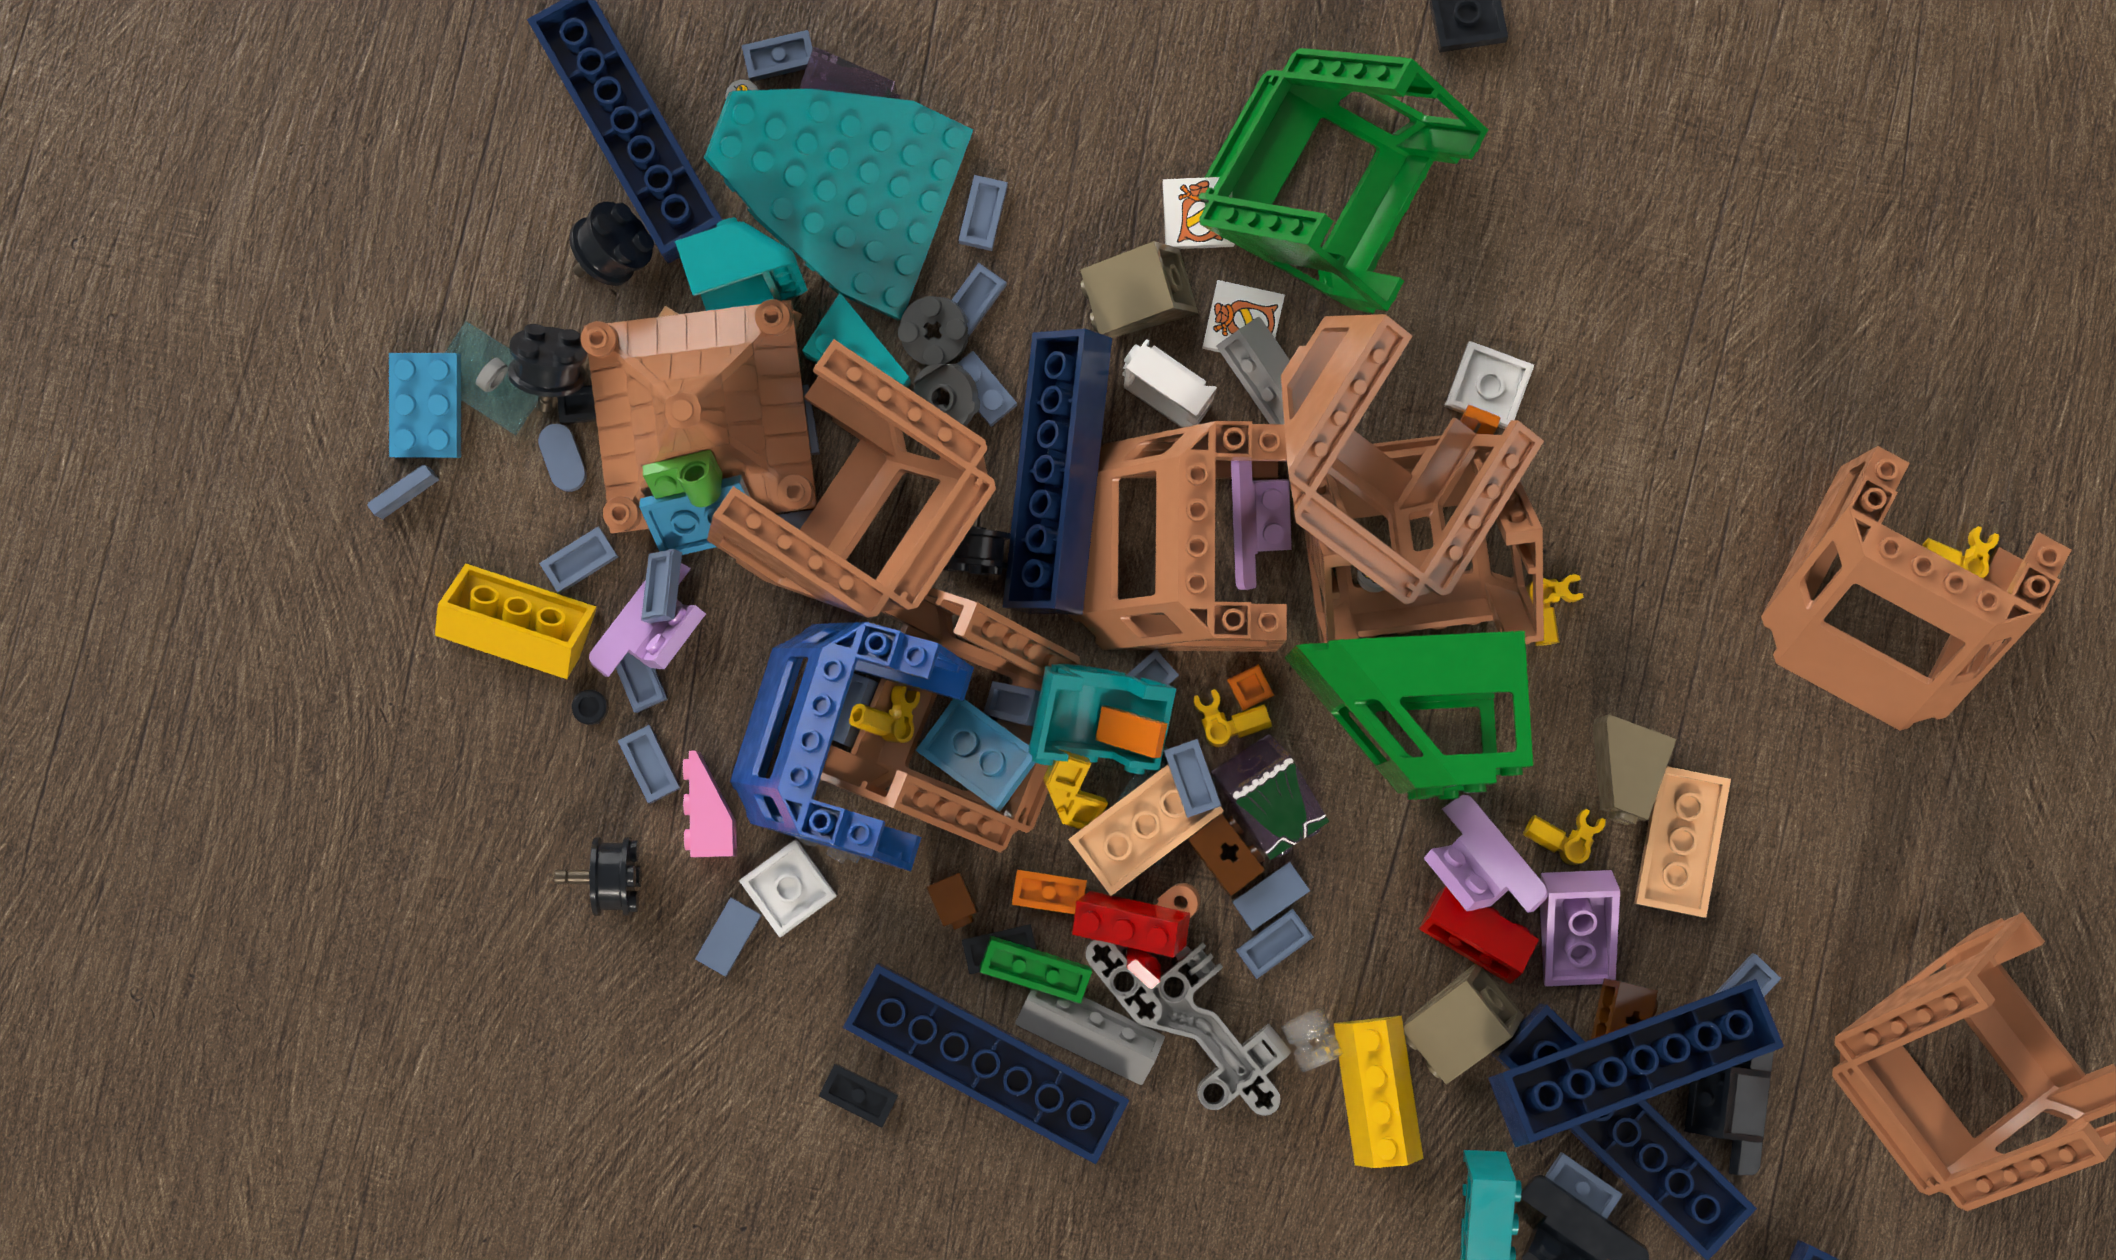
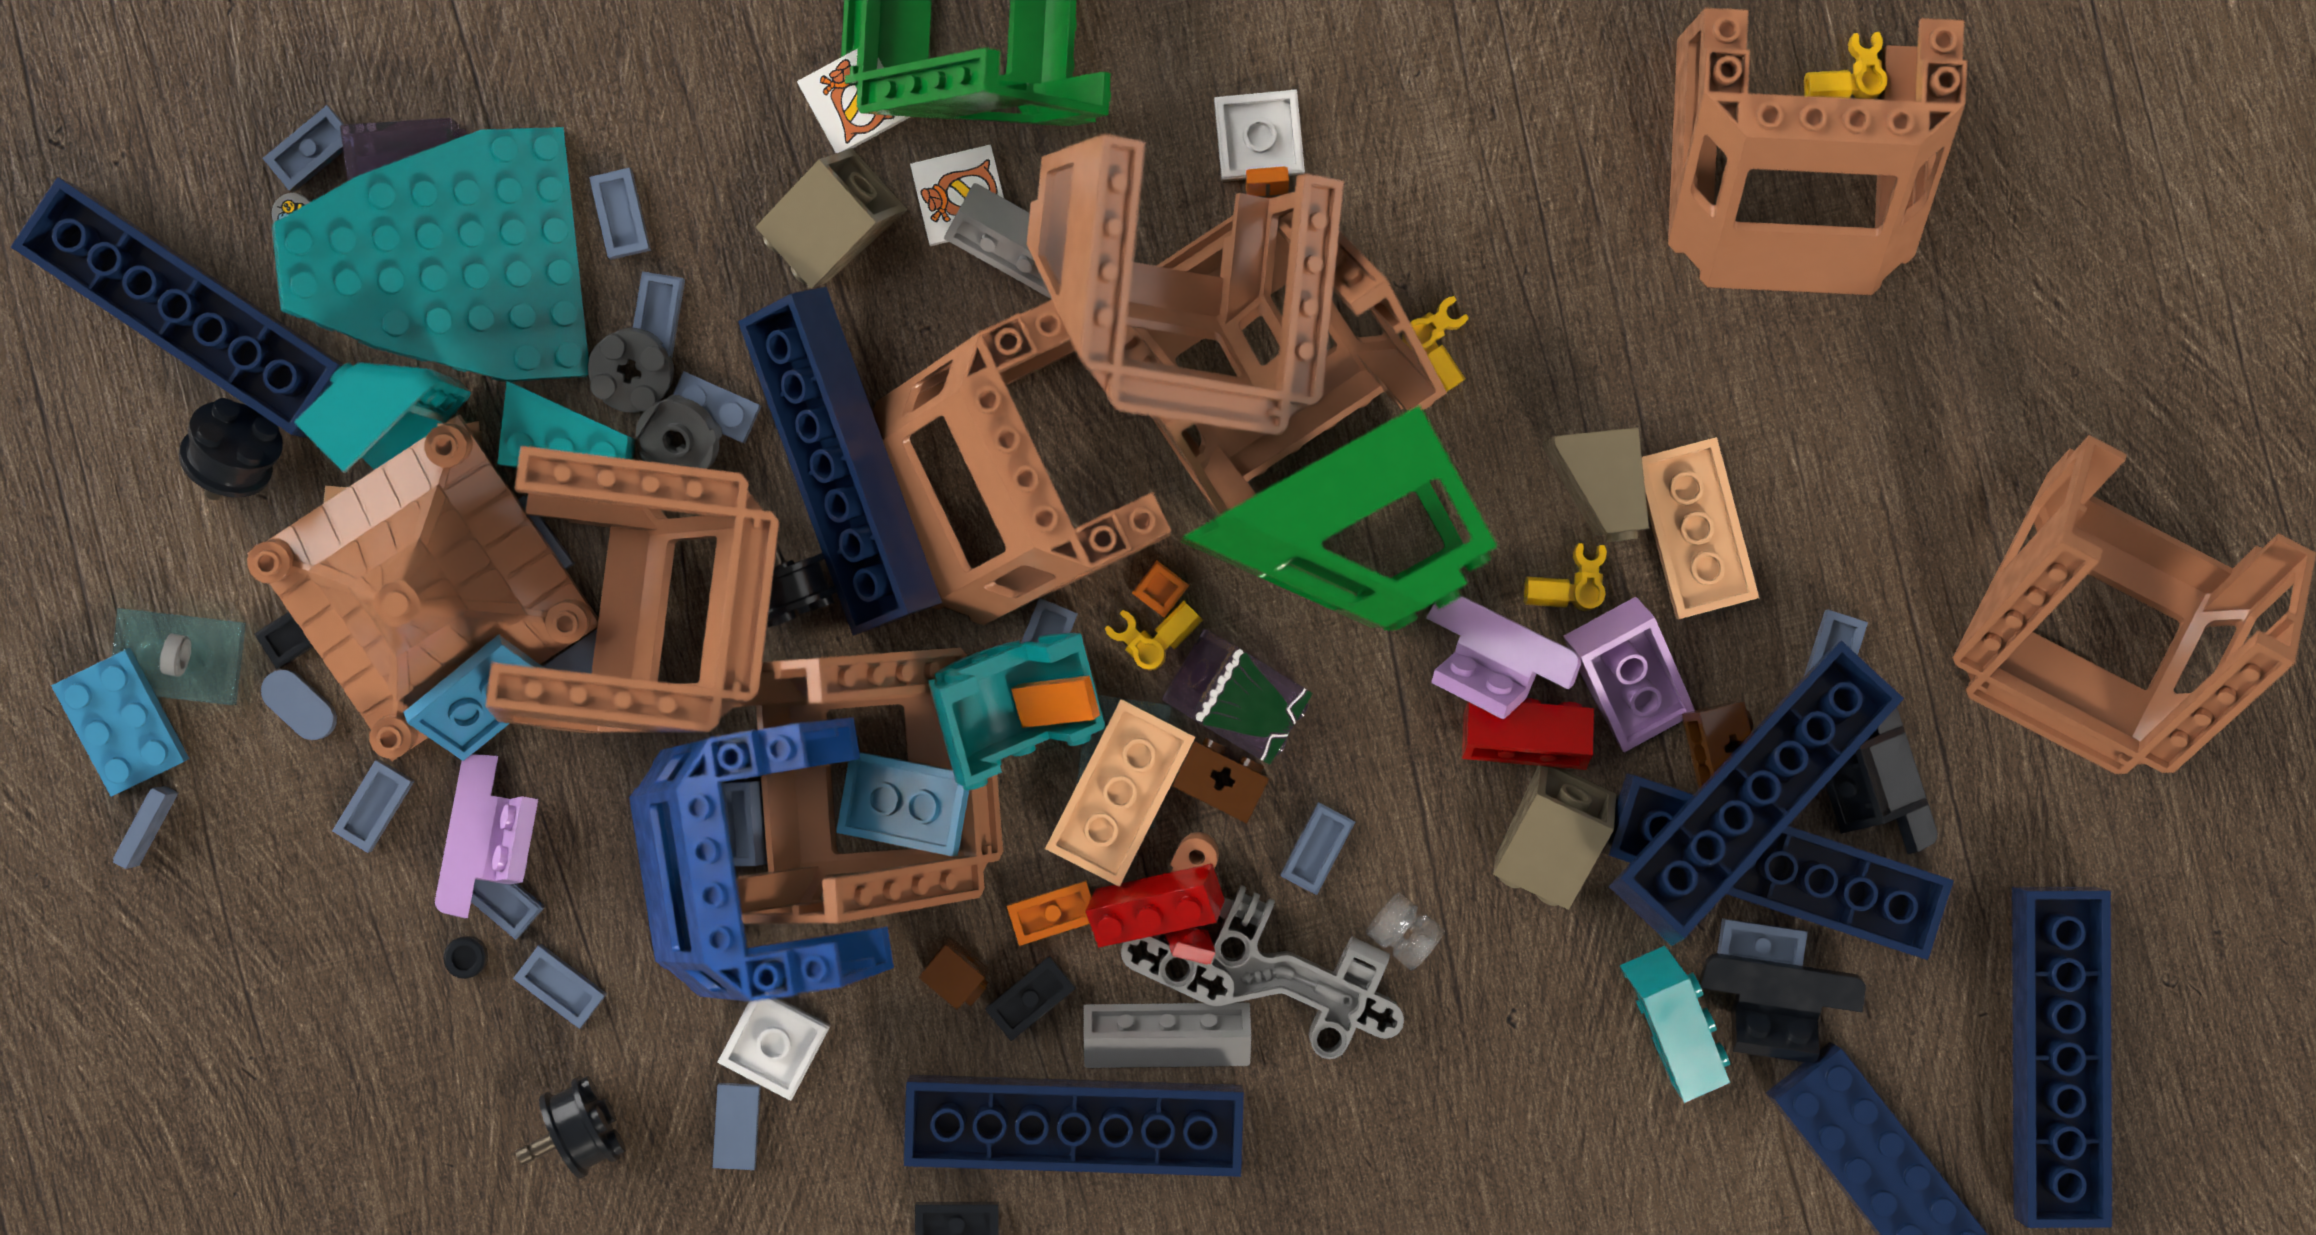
camera: 30 degrees left, 5 degrees up
(514, 620) = (336, 906): yellow slope -> none
(547, 363) = (227, 613): black wheel -> none
(661, 586) = (475, 793): sand blue tile -> none
(694, 474) = (447, 660): bright green plate -> none
(711, 820) = (655, 1013): bright pink slope -> none
(892, 726) = (800, 819): yellow bar -> none
(1012, 703) = (913, 733): sand blue tile -> none
(1035, 969) = (1078, 1003): green plate -> none
(1063, 783) = (1010, 792): yellow tile -> none
(1167, 385) = (911, 310): white window -> none
(1192, 778) = (1144, 720): sand blue tile -> none
(1259, 520) = (1078, 411): lavender plate -> none
(1270, 896) = (1289, 800): sand blue tile -> none
(1378, 1092) = (1502, 952): yellow slope -> none

